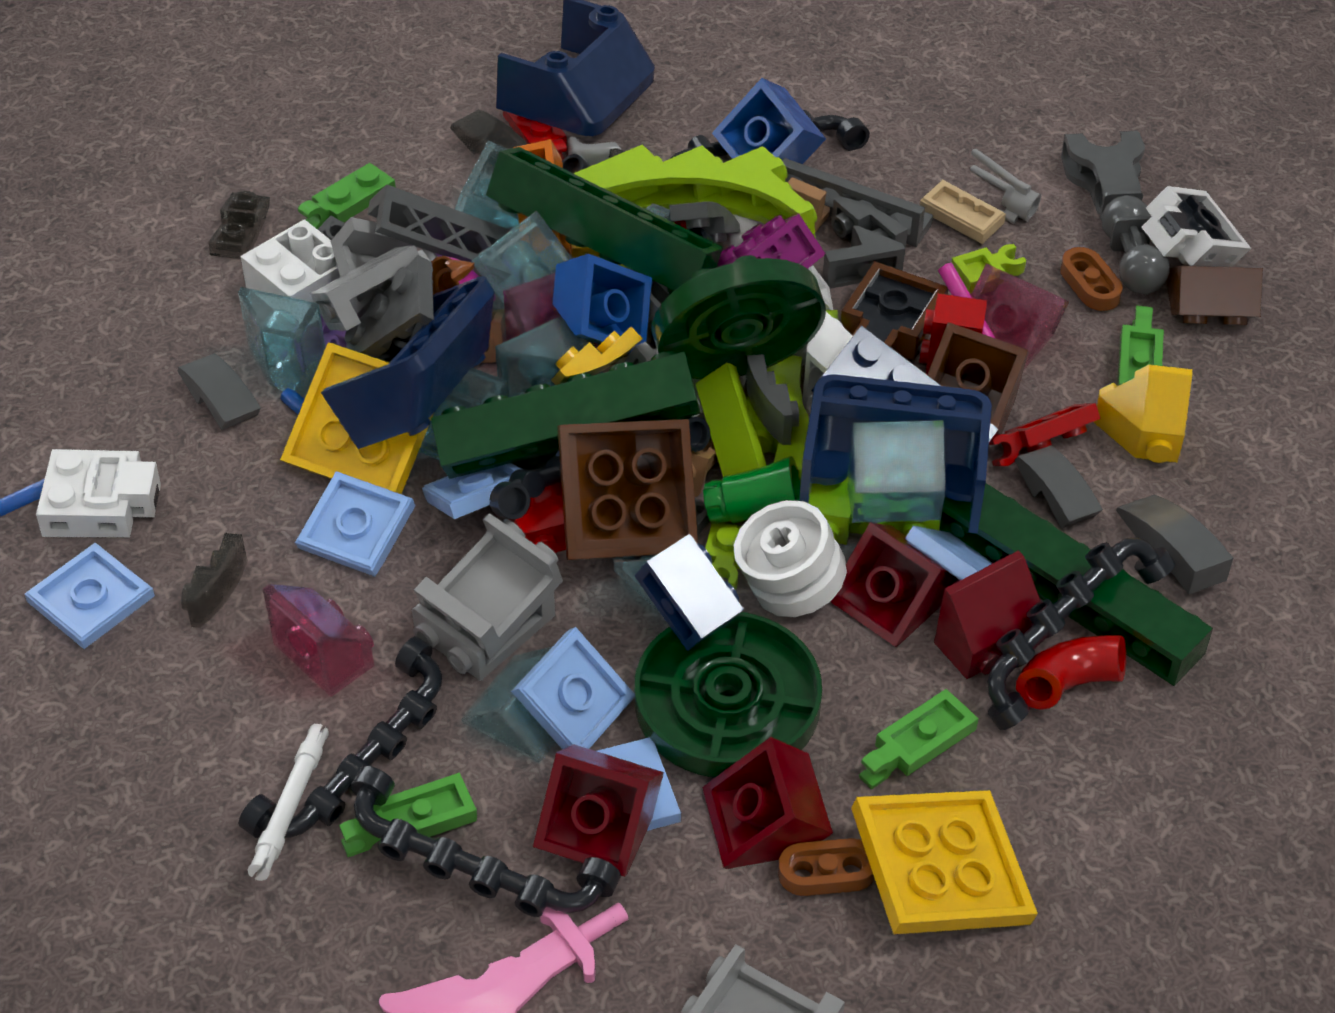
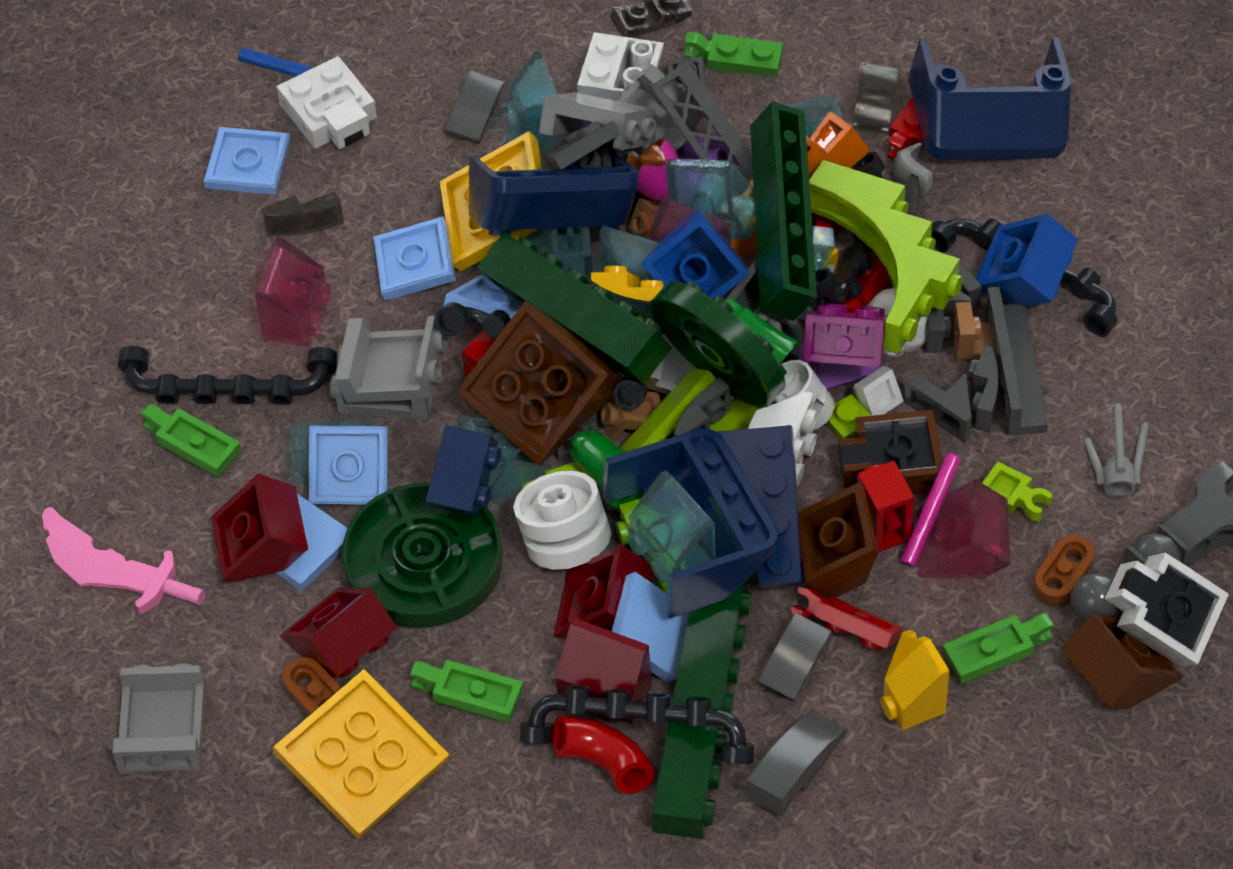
camera: 60 degrees right, 5 degrees up
(272, 839) = (103, 373): white piece -> none
(488, 873) = (165, 504): black bar -> none
(708, 216) = (849, 269): dark grey slope -> none
(963, 211) = (1070, 442): tan plate -> none

